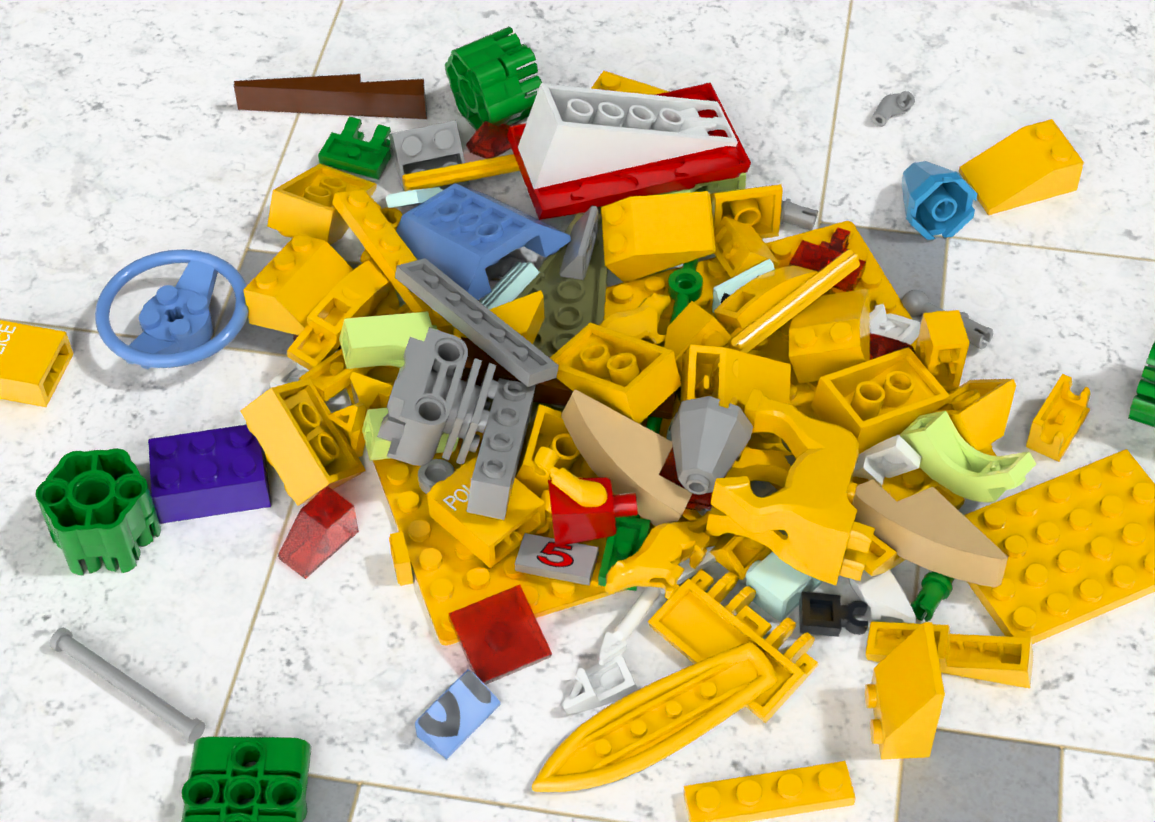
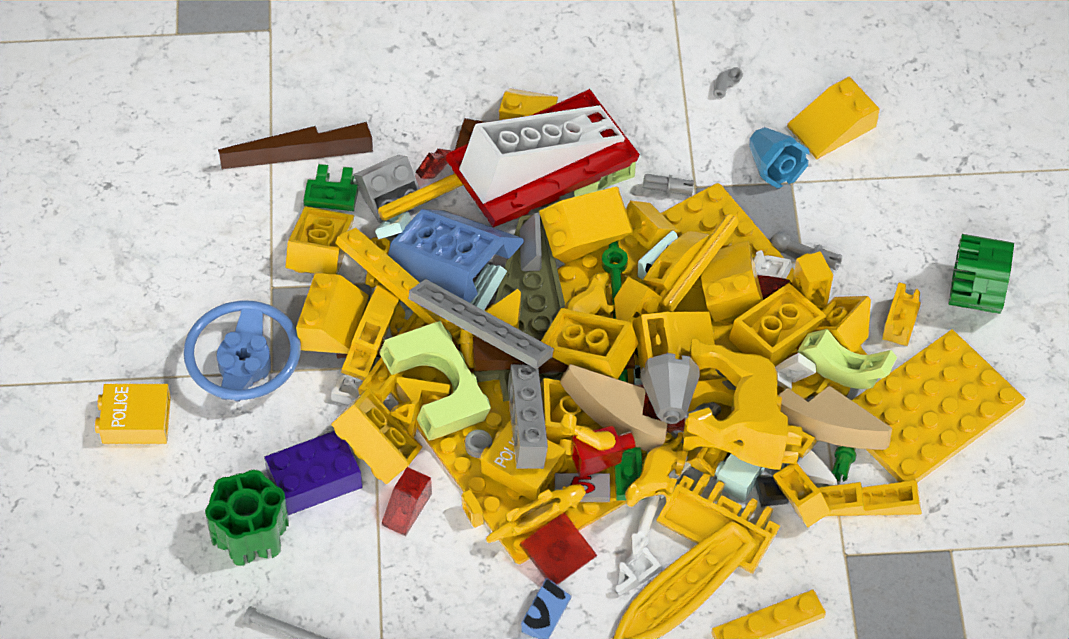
camera: 15 degrees left, 5 degrees up
(434, 401) = (474, 391): light grey piece -> none
(483, 577) = (538, 512): none -> yellow animal
(487, 79) = (422, 118): green piece -> none
(752, 206) = (645, 188): yellow slope -> none
(817, 257) = (709, 219): clear red hinge -> none
(859, 624) = (802, 494): none -> yellow arch
(907, 697) = (846, 538): yellow slope -> none

